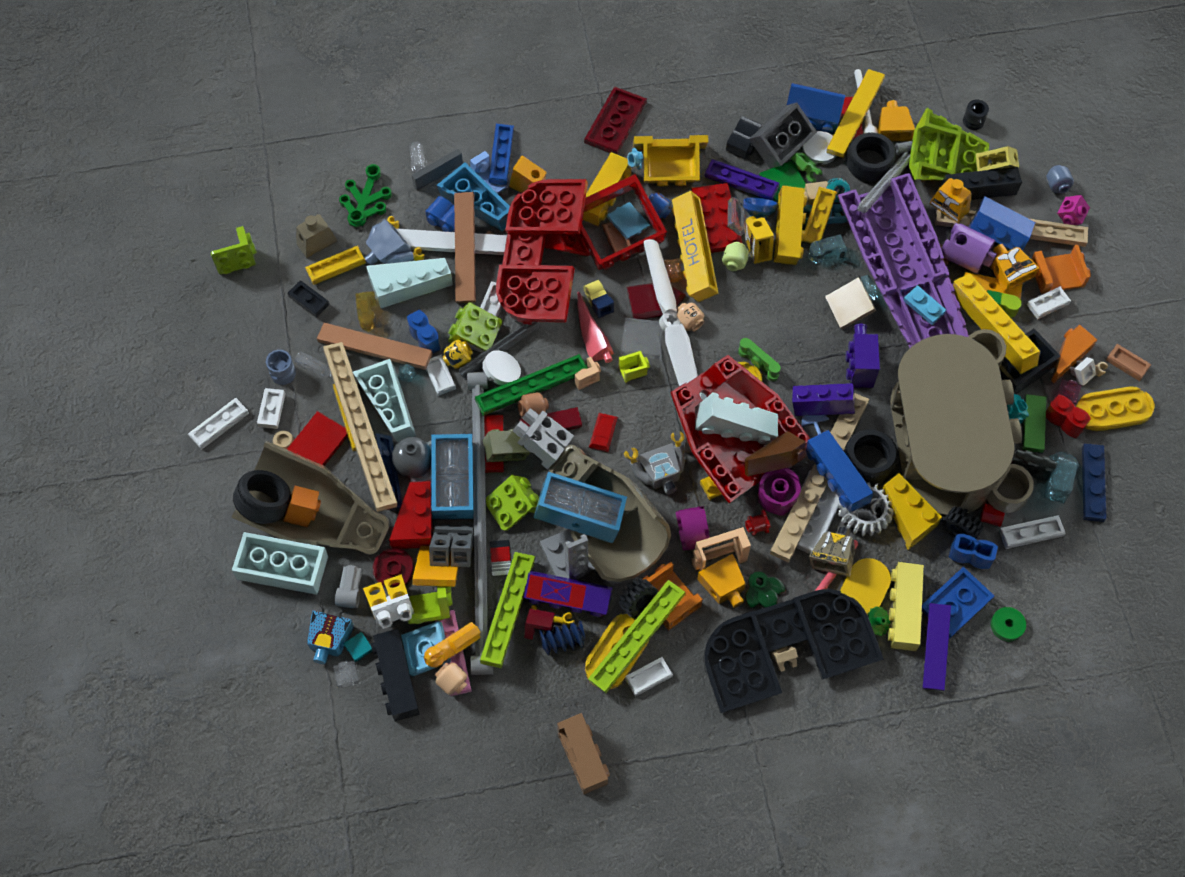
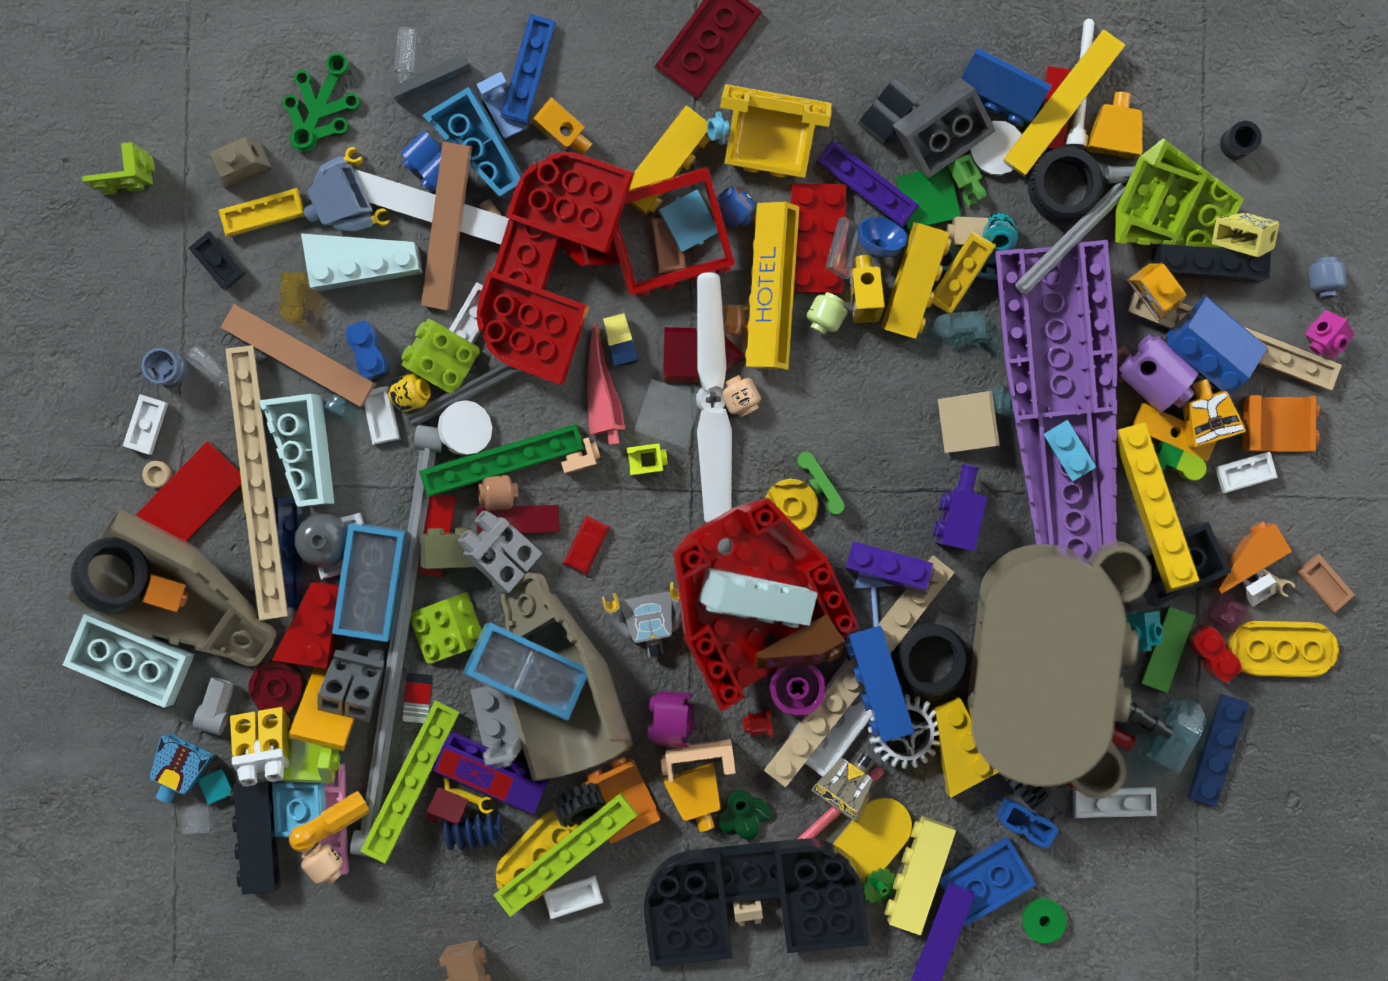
camera: 15 degrees right, 25 degrees up
(218, 423) = (73, 430): white tile -> none

